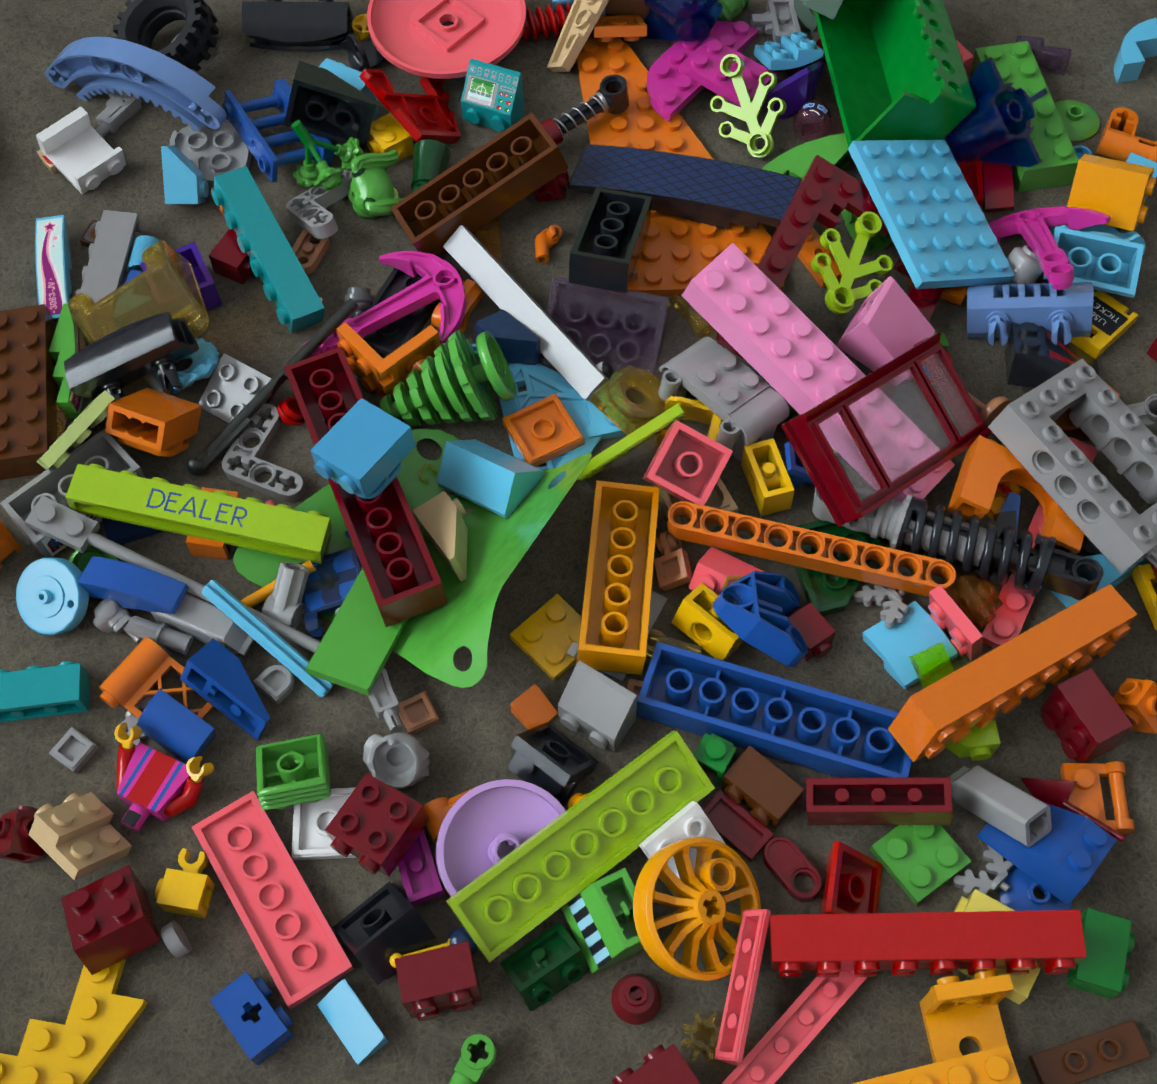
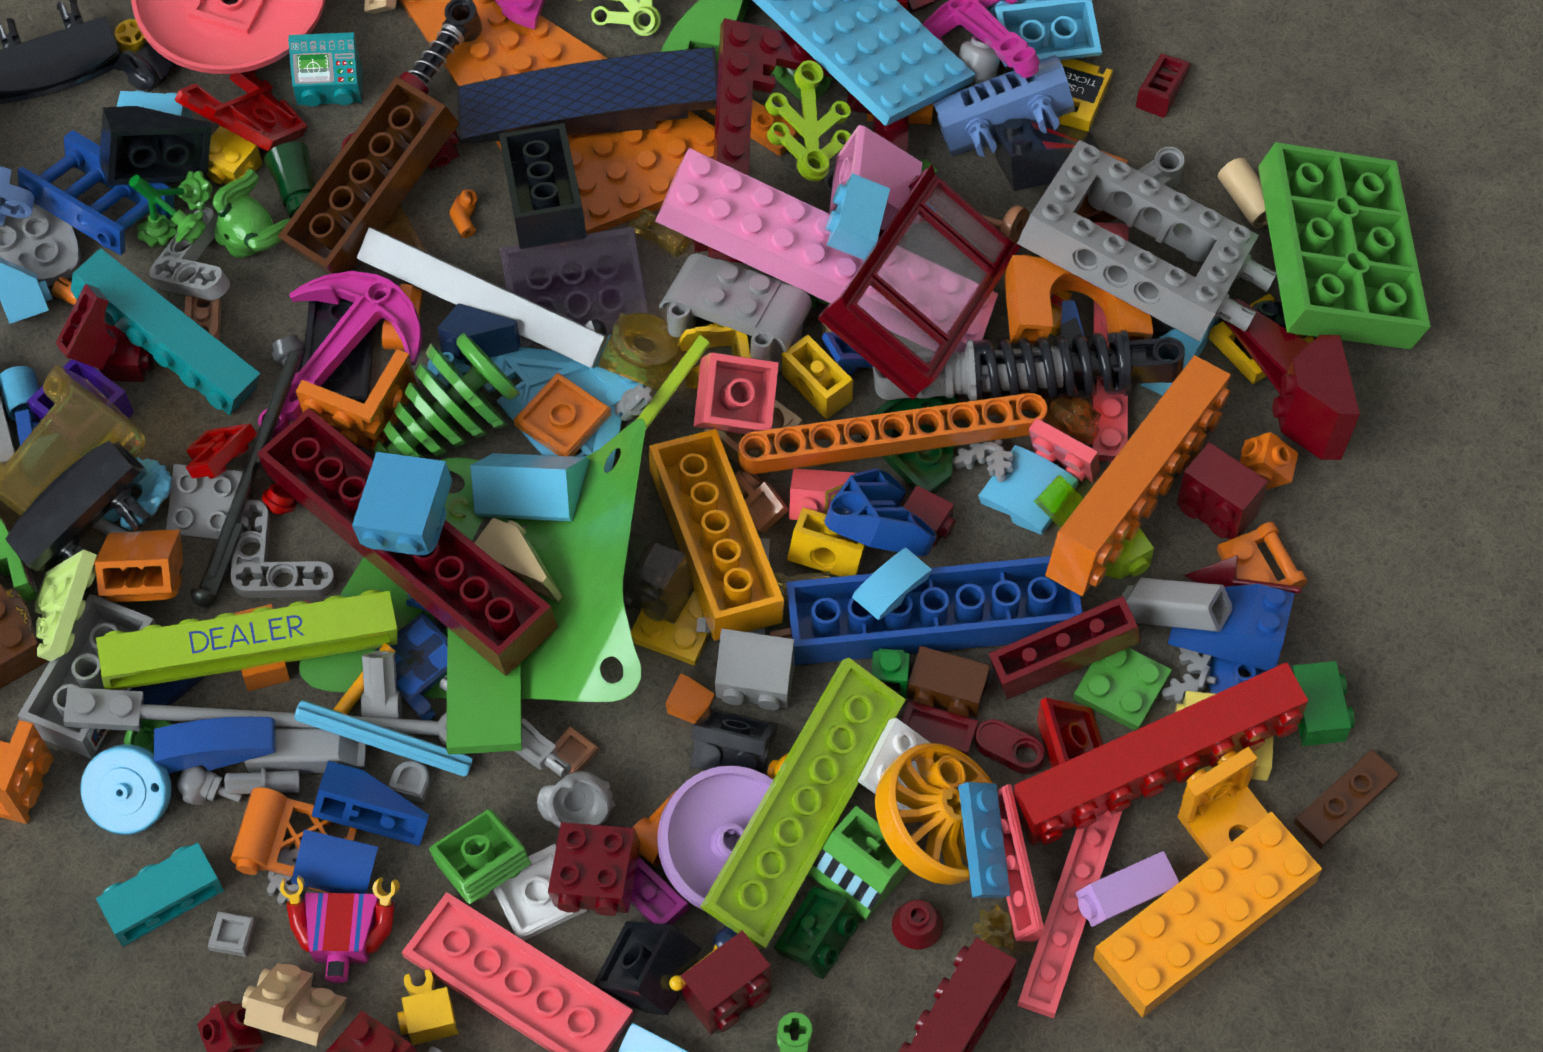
camera: 25 degrees left, 0 degrees up
(204, 229) = (85, 333): none -> dark red arch
(260, 353) = (217, 448): none -> red plate
(545, 596) = (660, 584): none -> clear smoke piece
(602, 439) = (633, 402): none -> light grey axle
(724, 952) = (984, 840): none -> dark azure plate
(745, 679) = (891, 583): none -> medium azure slope
(839, 1055) = (1126, 889): none -> lavender brick
(855, 352) = (858, 216): none -> medium azure brick

